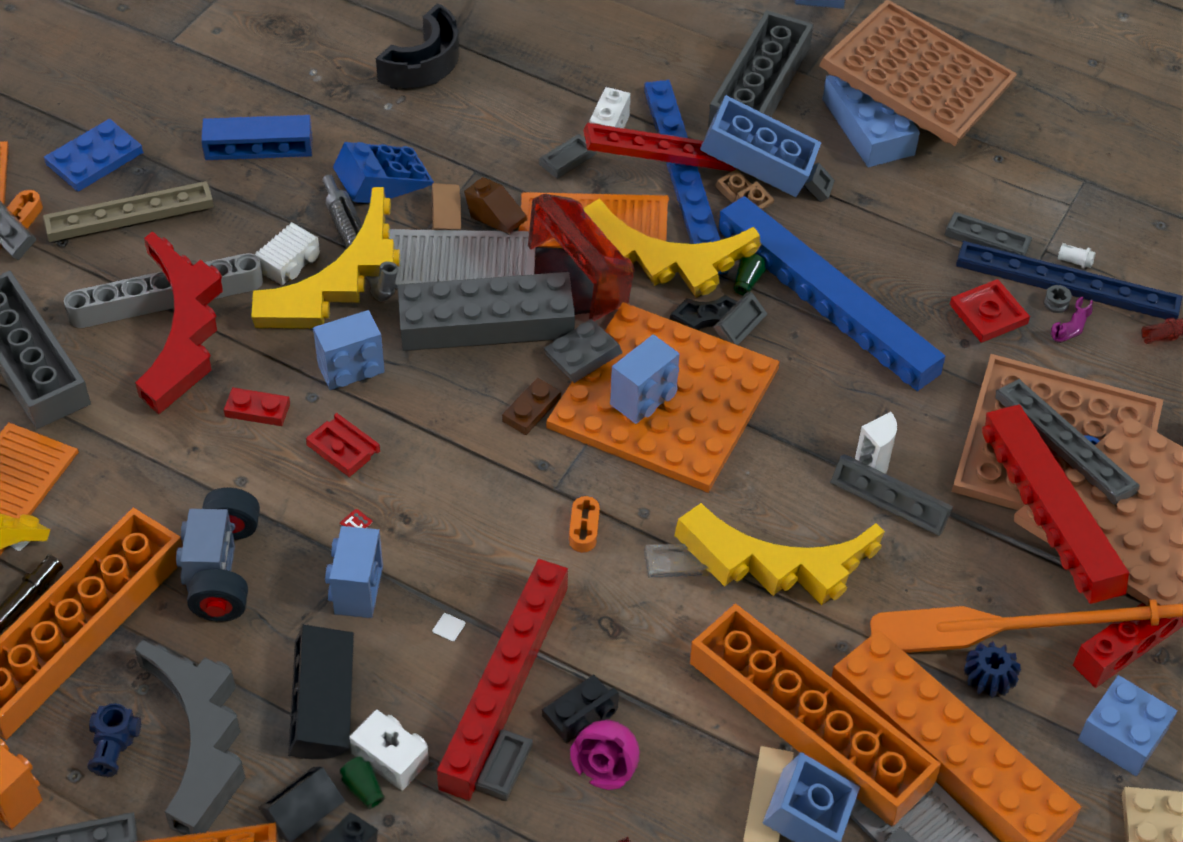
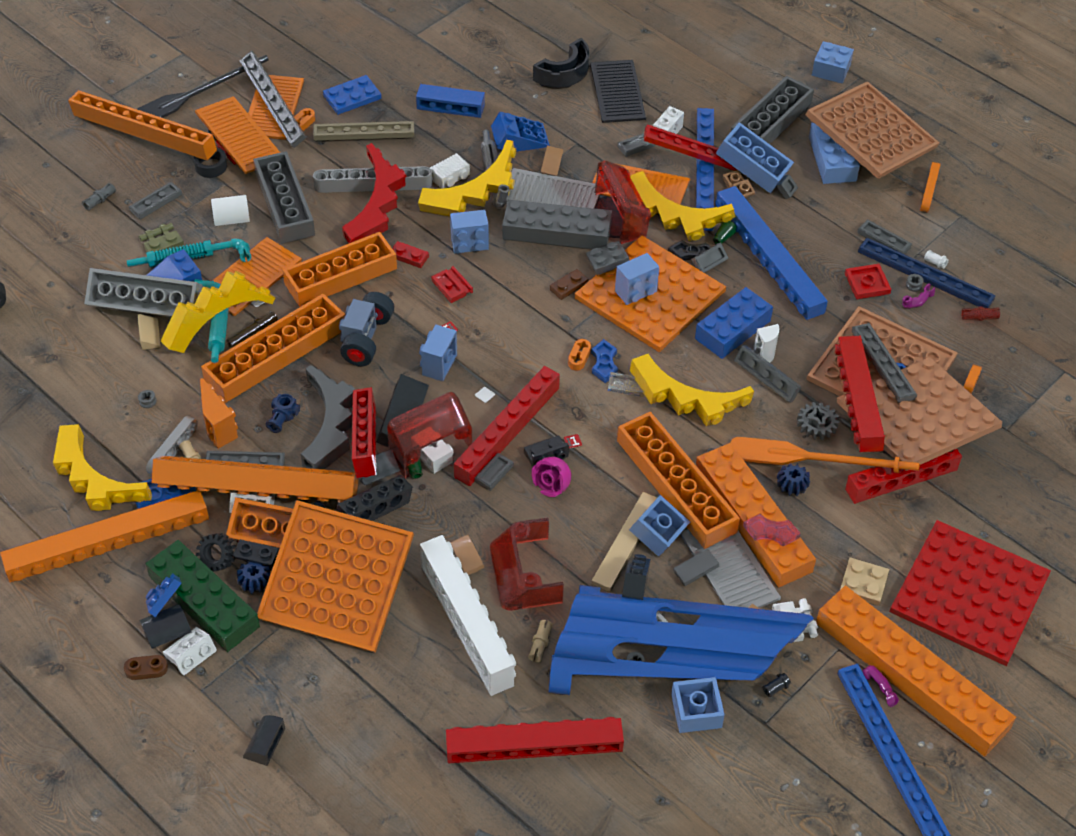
camera: 15 degrees right, 0 degrees up
(148, 457) = (340, 268): none -> orange brick
(269, 751) = (364, 433): none -> red brick
(375, 718) = (425, 426): none -> clear red windscreen
(494, 206) = (580, 165): reddish brown slope -> none
(514, 77) = (617, 91): none -> black window
(617, 678) = (573, 441): none -> red sticker
(623, 515) = (604, 356): none -> blue tile
(812, 420) = (733, 322): none -> blue brick
(986, 773) = (763, 528): none -> clear pink tile
(995, 559) = (818, 421): none -> dark grey gear
(1028, 144) = (930, 186): none -> orange beam
(1127, 725) = (863, 525): medium blue brick -> none

